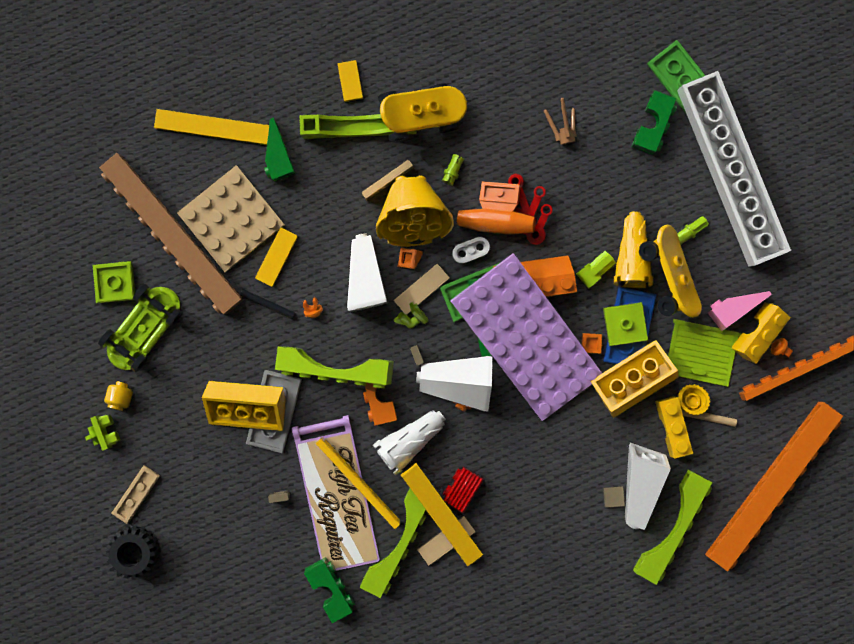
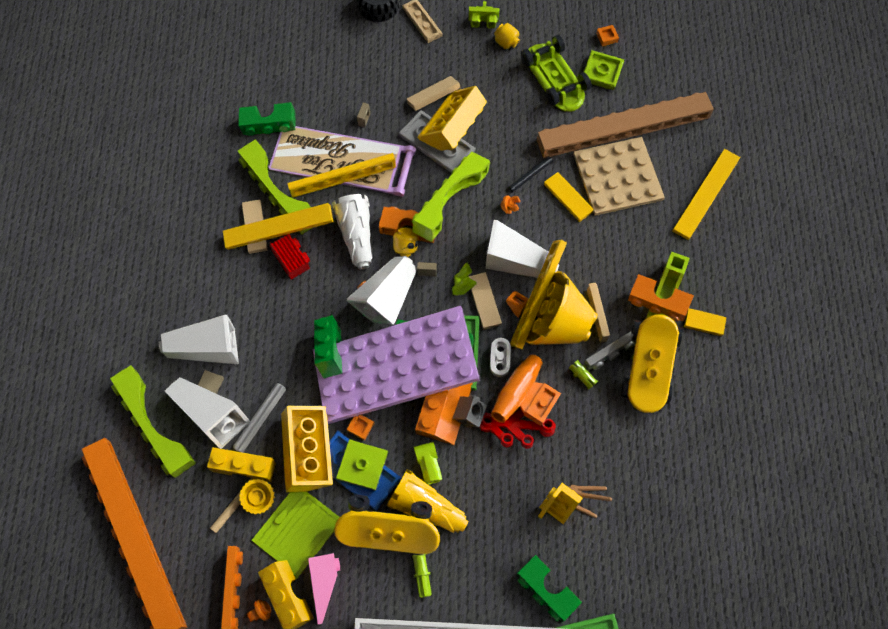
camera: 115 degrees right, 20 degrees down
(68, 294) = (607, 35): none -> orange plate
(220, 440) = (433, 93): none -> tan tile
(277, 157) = (659, 231): green slope -> none
(353, 109) = (644, 295): none -> orange arch
(399, 239) = (538, 293): none -> yellow tile
(400, 388) = (405, 242): none -> yellow head
(422, 154) = (610, 352): none -> light grey plate
(535, 253) = (469, 411): none -> dark grey brick
(549, 401) = (326, 336): none -> green arch
(581, 140) = (560, 503): none -> yellow bracket
(583, 518) = (204, 341): none -> white slope
(621, 435) = (259, 418): none -> light grey axle

